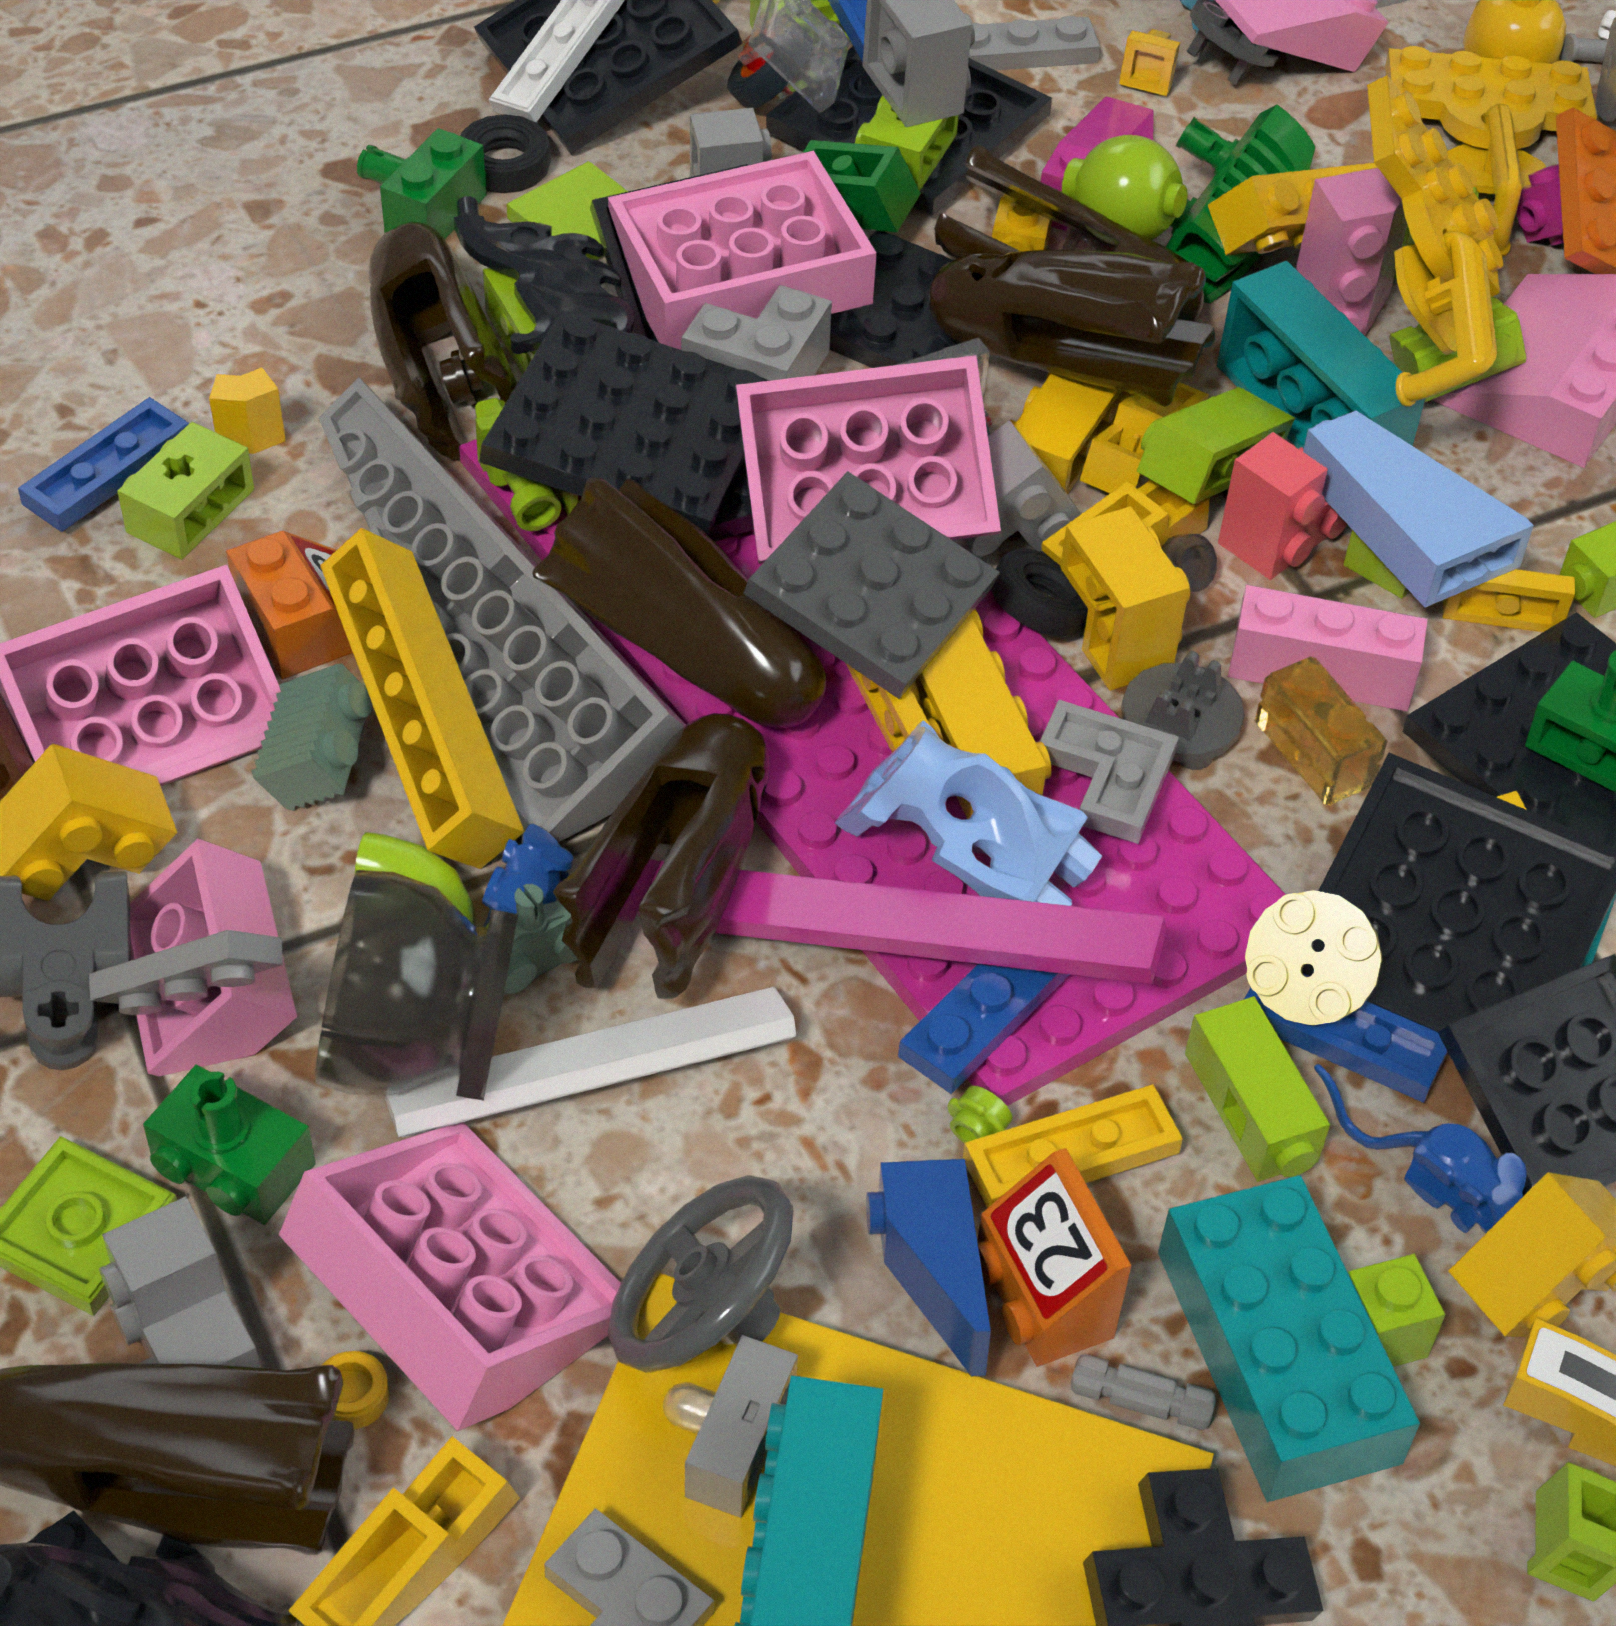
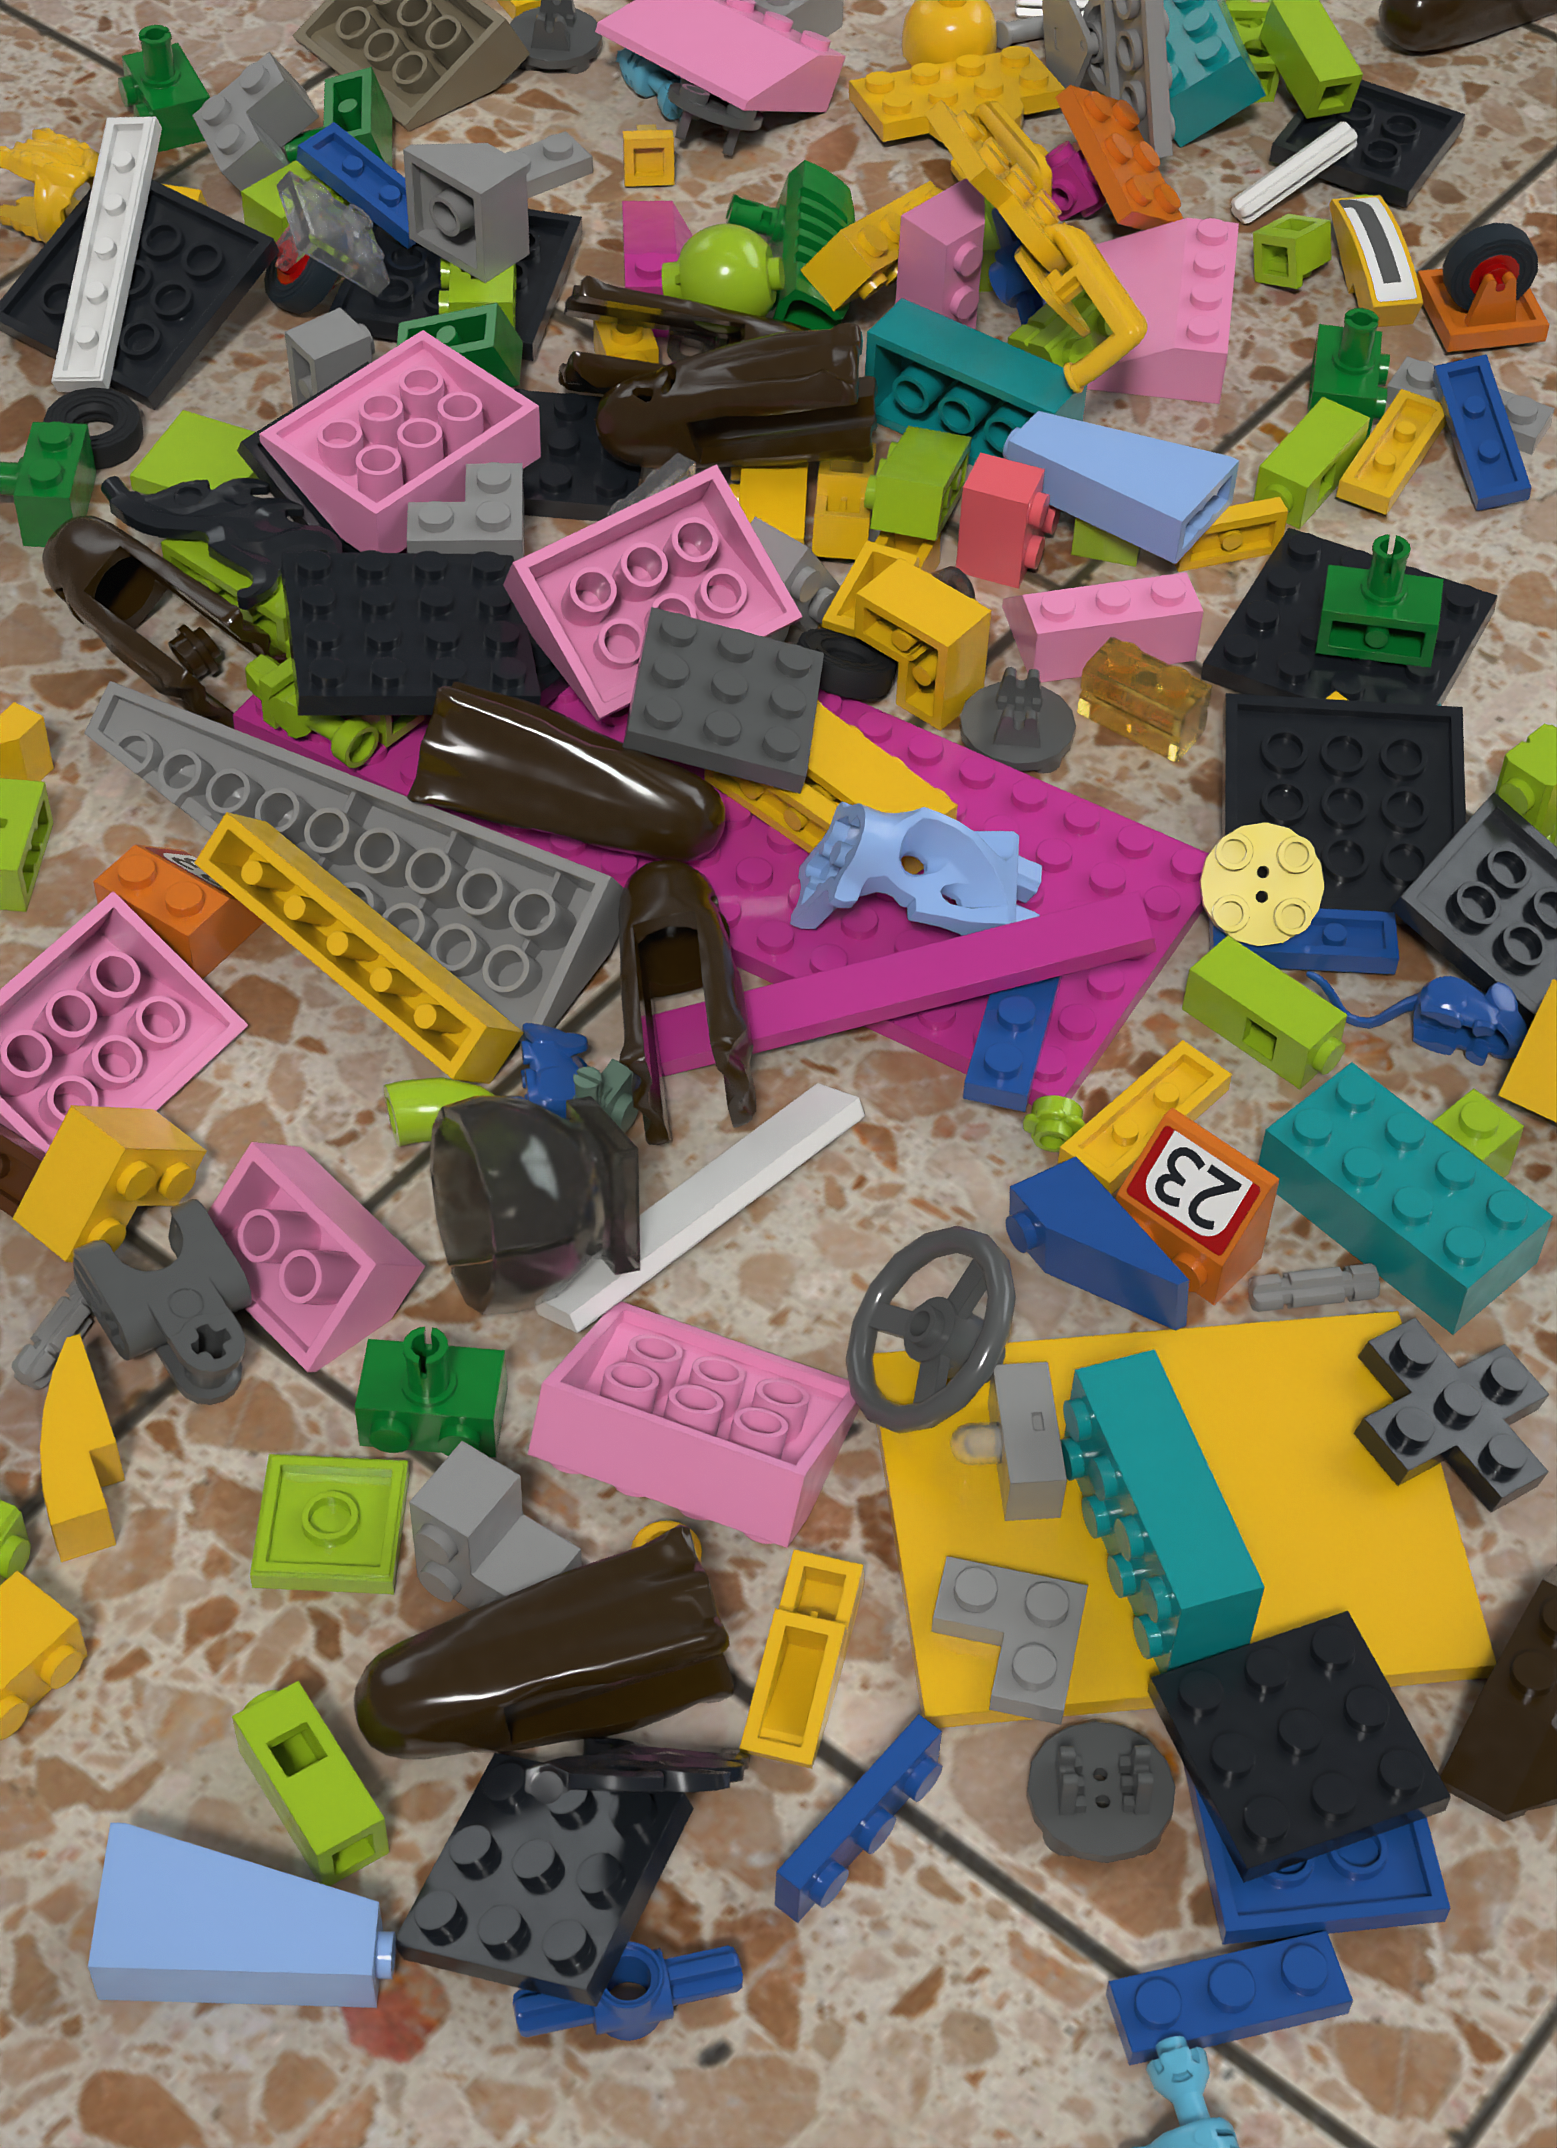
camera: 25 degrees left, 0 degrees up
(186, 971) = (324, 1258): light grey plate -> none
(313, 737) = (278, 1020): sand green brick -> none
(1122, 759) = (1008, 779): light grey plate -> none

